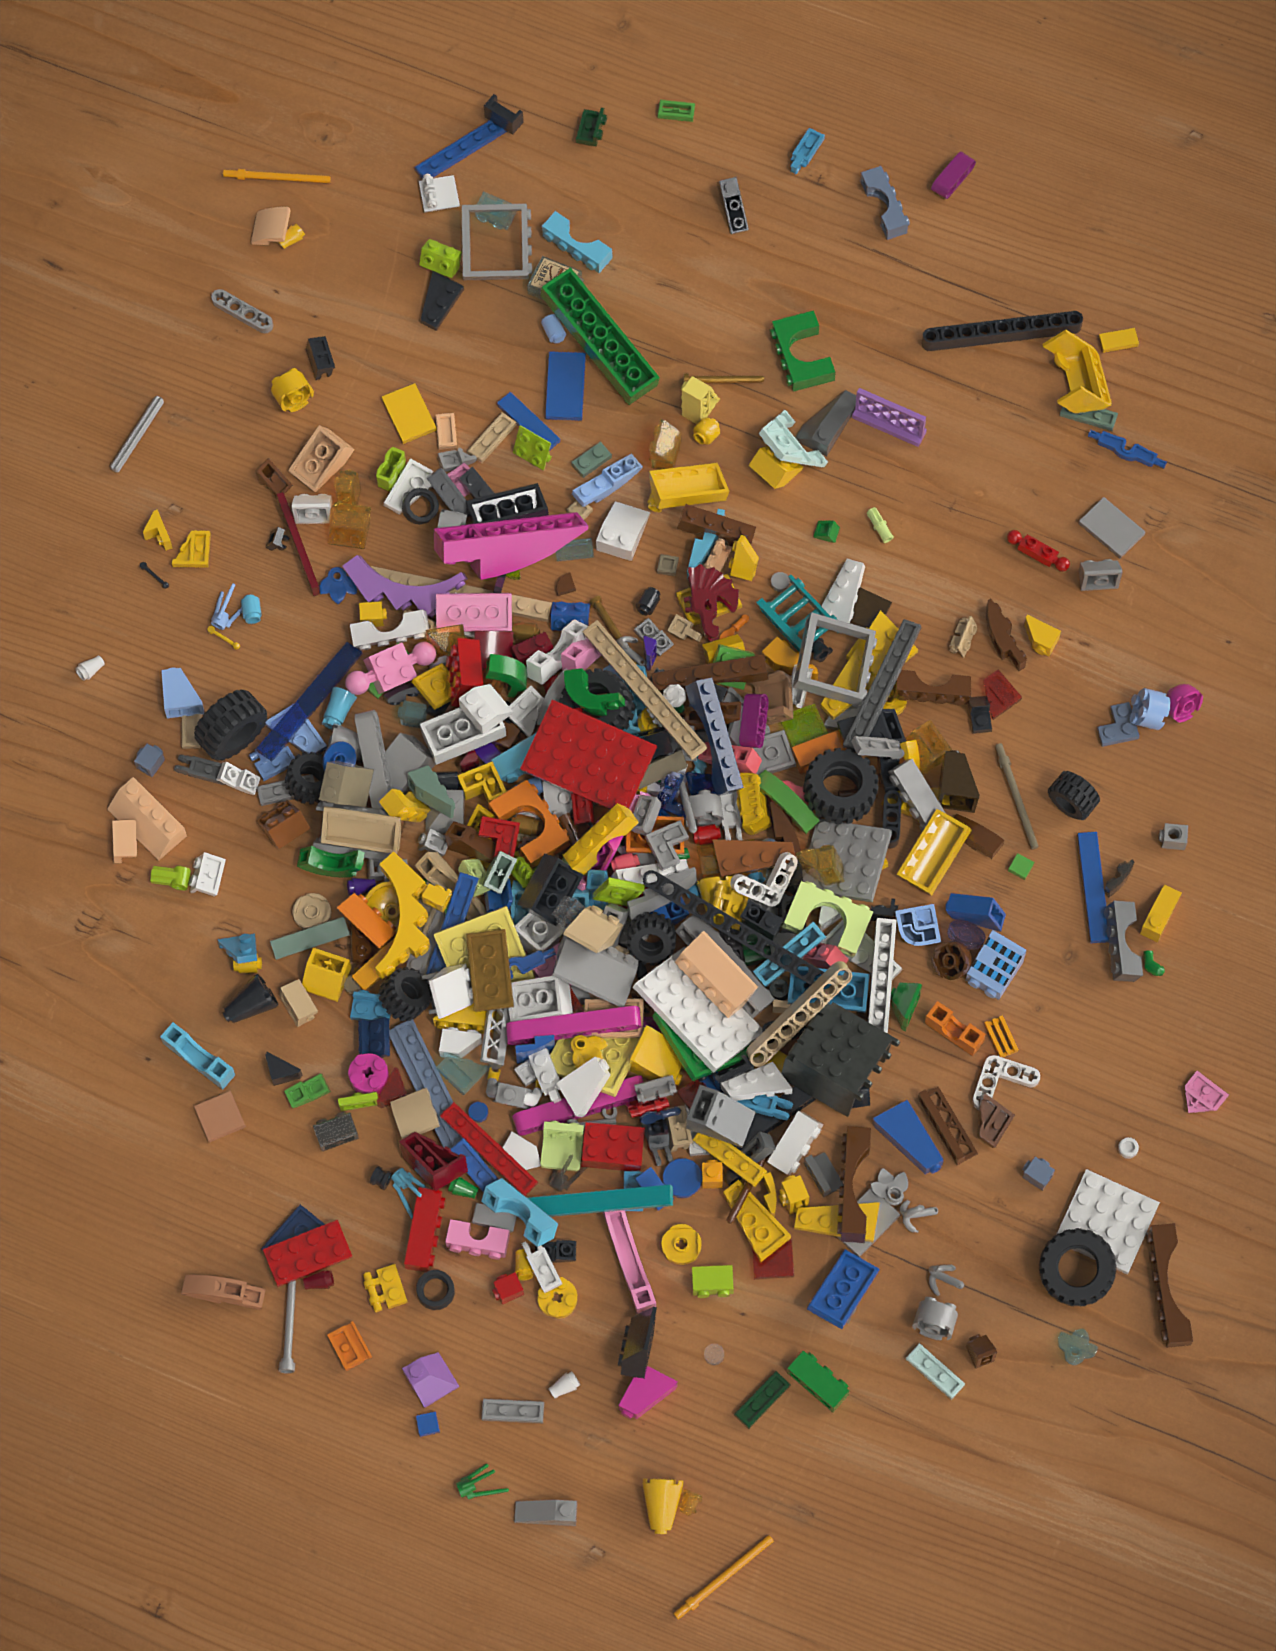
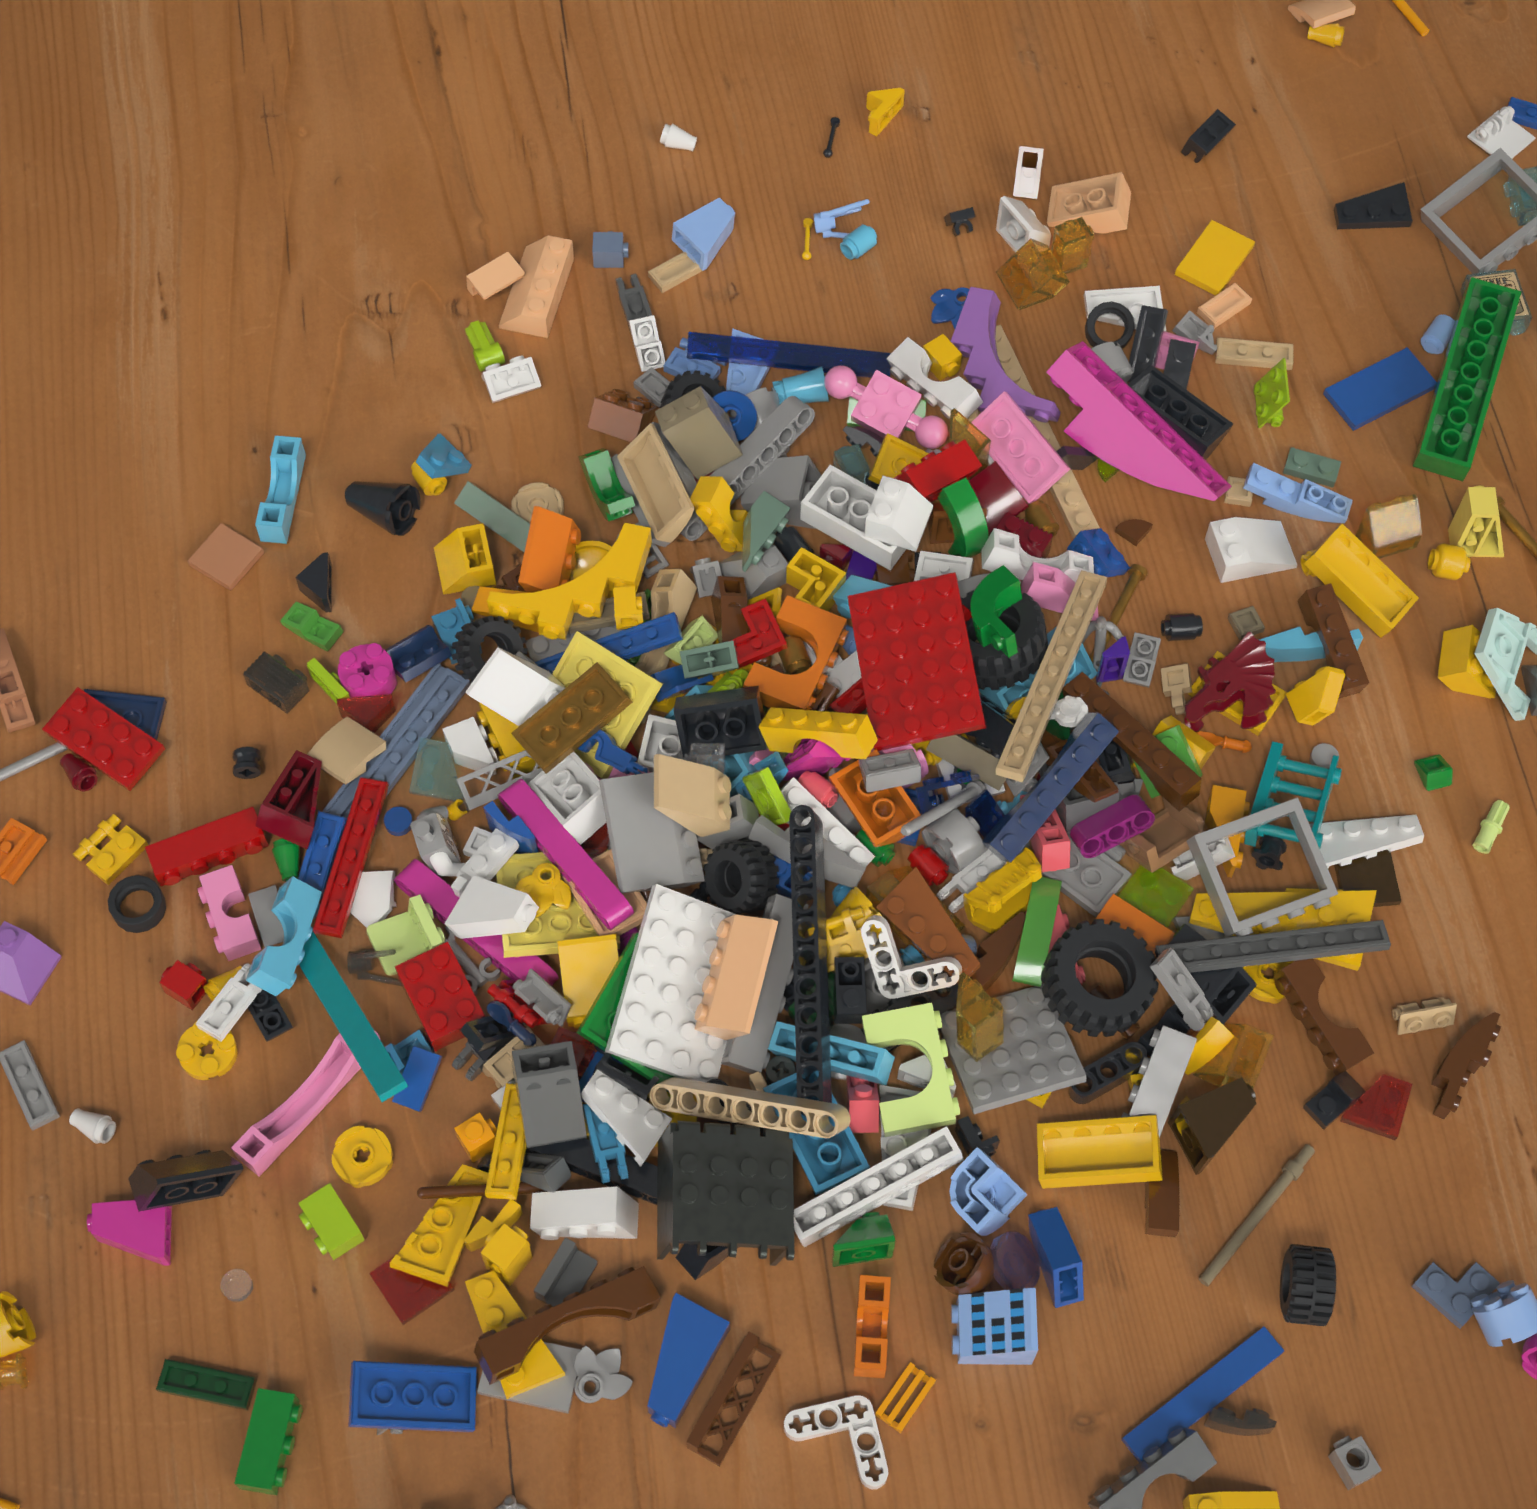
camera: 55 degrees right, 5 degrees down
(136, 434) = (980, 31): light grey axle -> none
(194, 551) = (887, 154): yellow wing -> none
(230, 725) = (695, 287): black tyre -> none
(242, 311) = (1205, 42): light grey beam -> none
(291, 390) = (1144, 130): yellow brick -> none
(297, 1002) = (412, 552): tan hinge -> none
(298, 544) = (965, 246): dark red tile -> none
(359, 885) = (597, 530): dark purple cone -> none
(392, 468) = (1131, 272): lime brick -> none
(404, 1180) = (256, 788): medium azure plant -> none
(440, 258) = (1423, 176): lime brick -> none
(523, 416) = (1304, 378): blue tile -> none
(576, 550) = (1185, 514): clear light blue tile -> none
(662, 843) = (870, 808): light grey plate -> none
(683, 1176) = (452, 1103): blue tile -> none
(718, 555) = (1291, 669): light nougat hinge -> none
(918, 1211) = (579, 1430): light grey piece -> none
(992, 1120) = (775, 1457): reddish brown wing -> none
(1021, 866) = (1163, 1279): bright green tile -> none
(1041, 635) = (1502, 1113): yellow slope -> none

